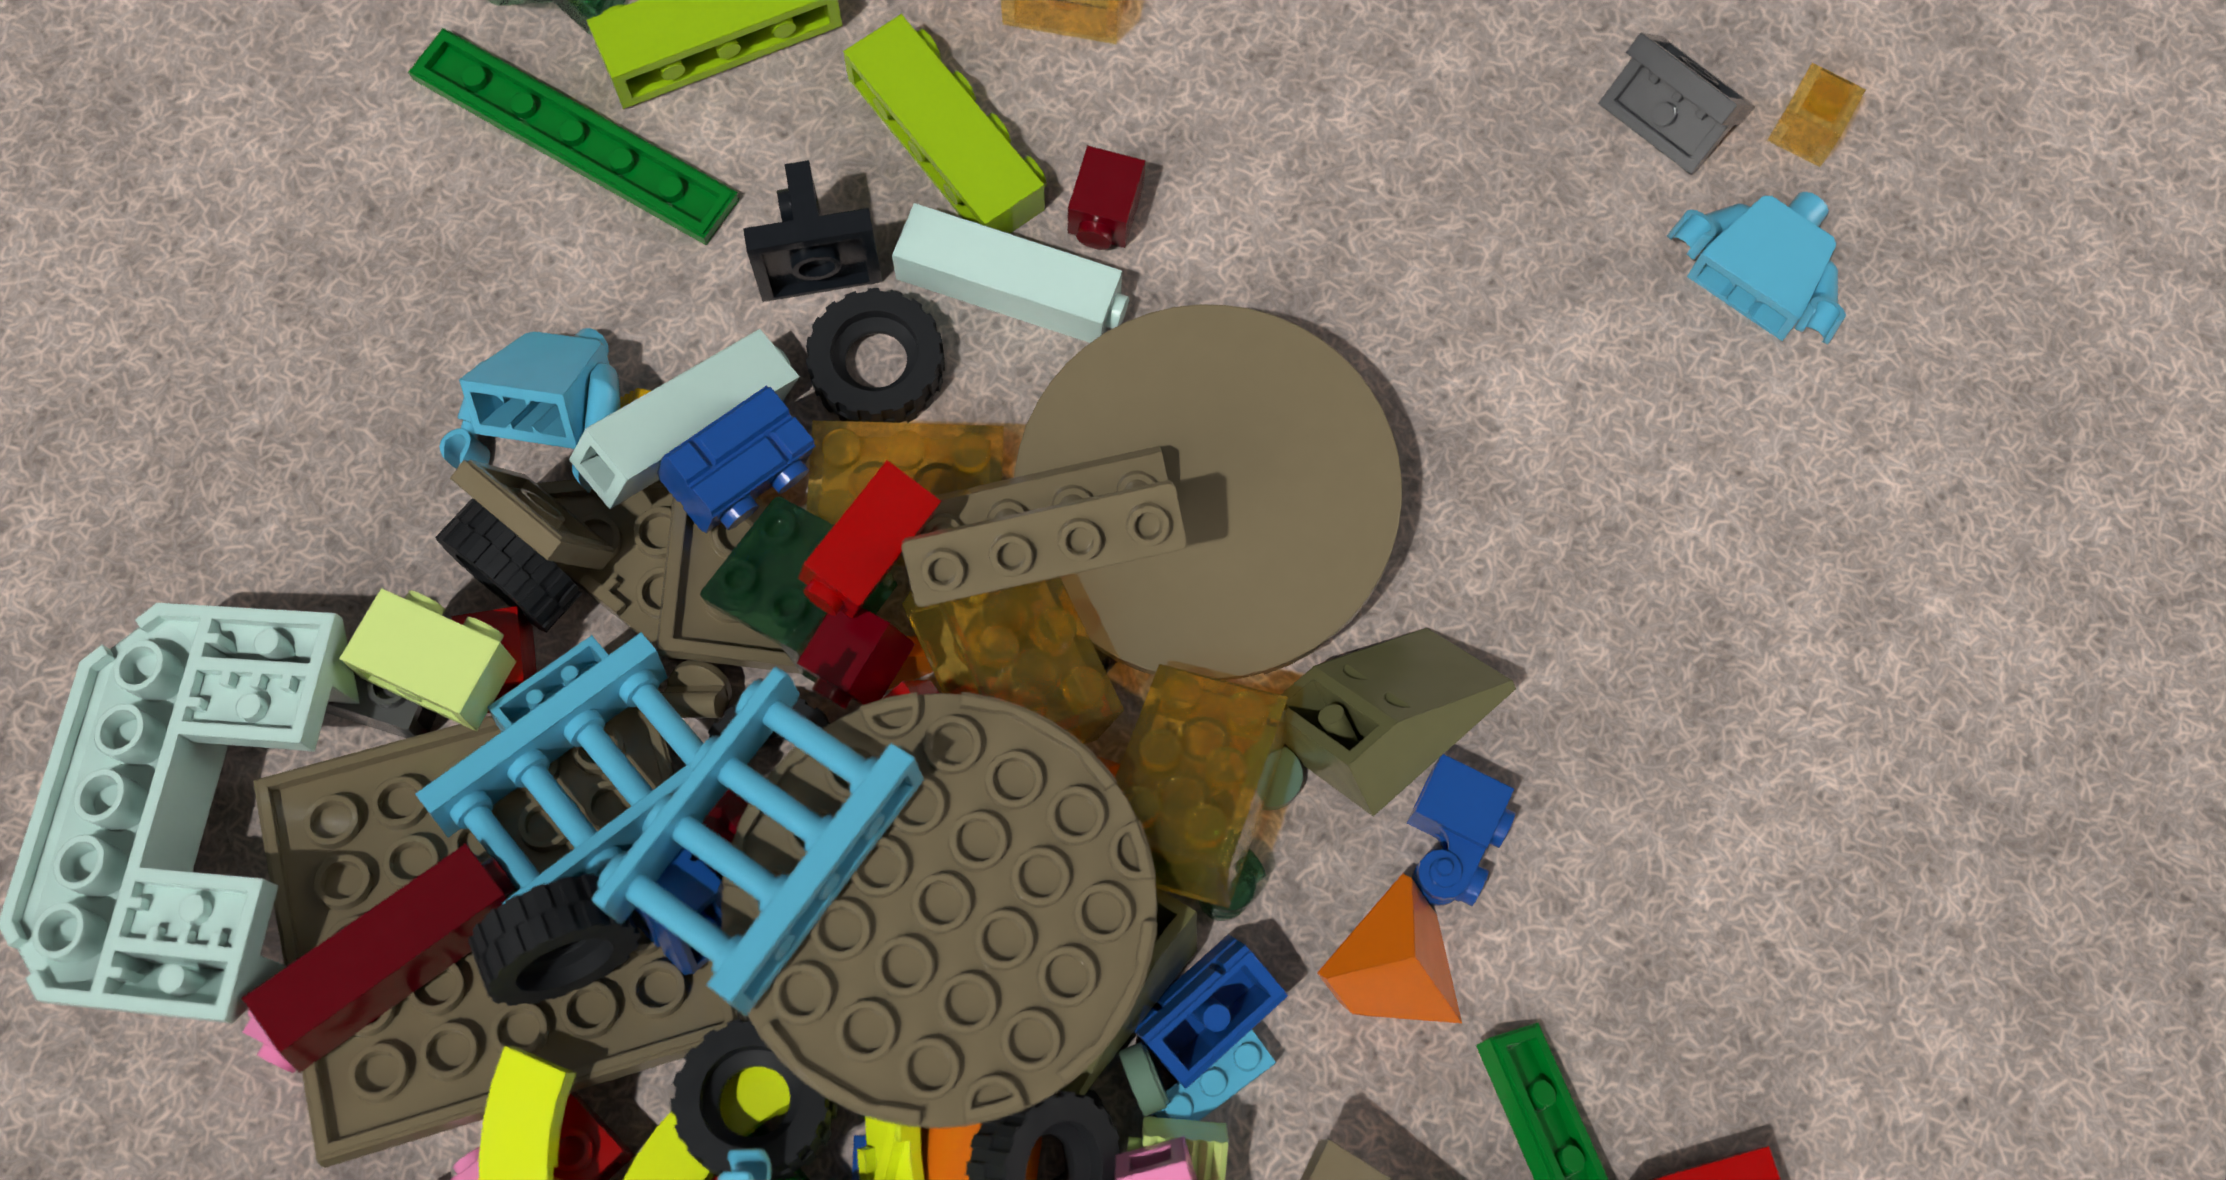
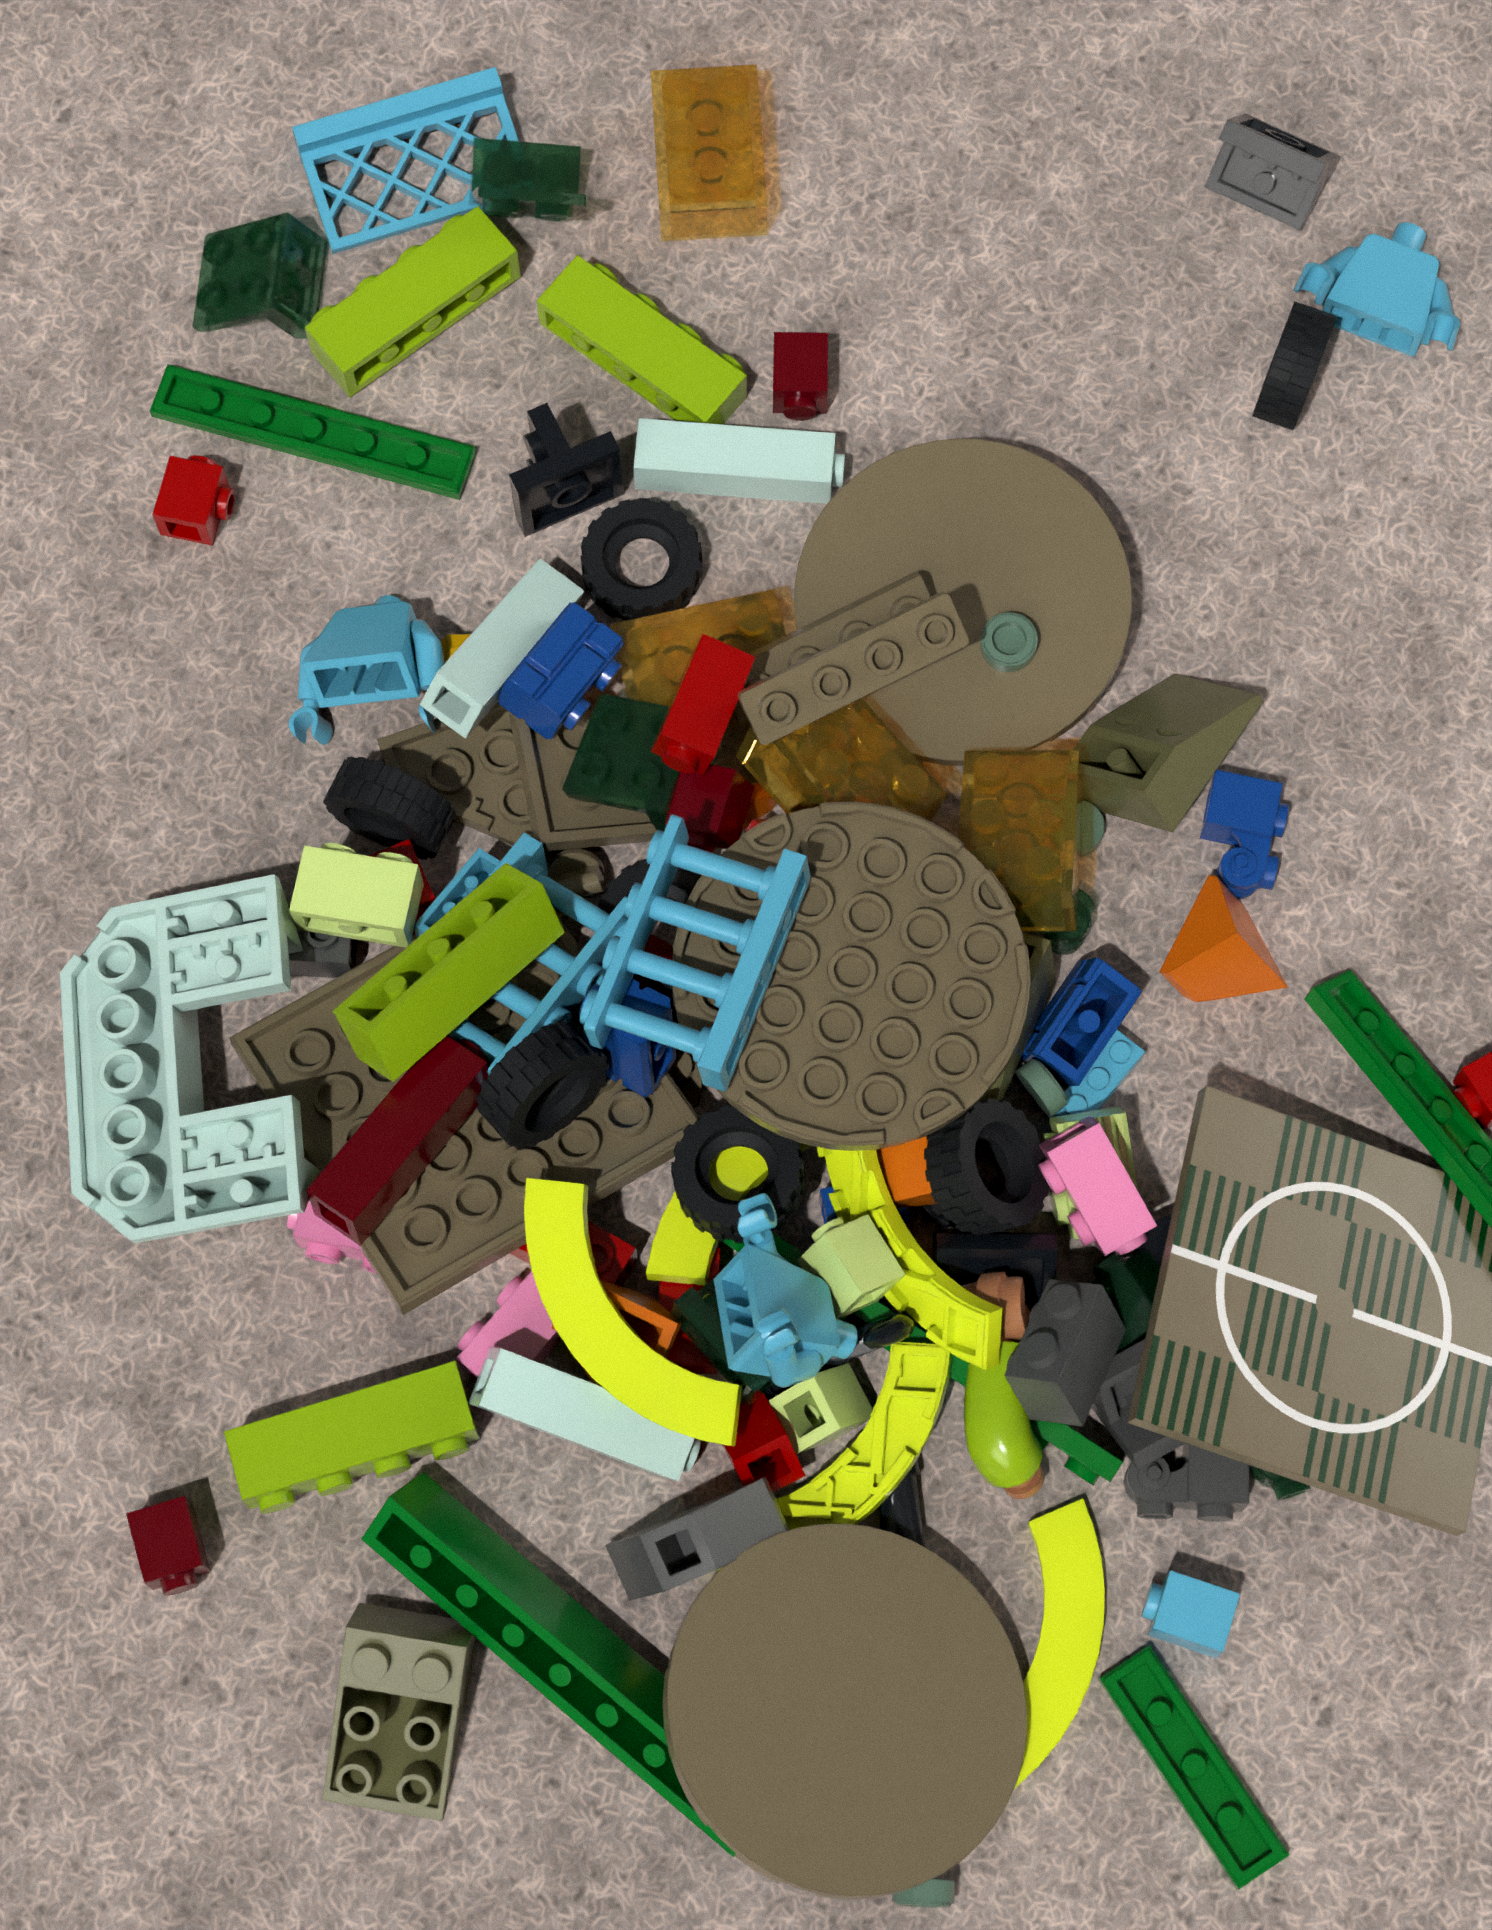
camera: 10 degrees left, 0 degrees up
(418, 175) = (193, 499): none -> red brick
(489, 780) = (451, 969): none -> lime brick
(533, 515) = (404, 758): dark tan tile -> none
(1244, 551) = (1008, 642): none -> sand green tile
(1647, 318) = (1294, 365): none -> black tyre
(1816, 115) = (1395, 152): clear yellow brick -> none

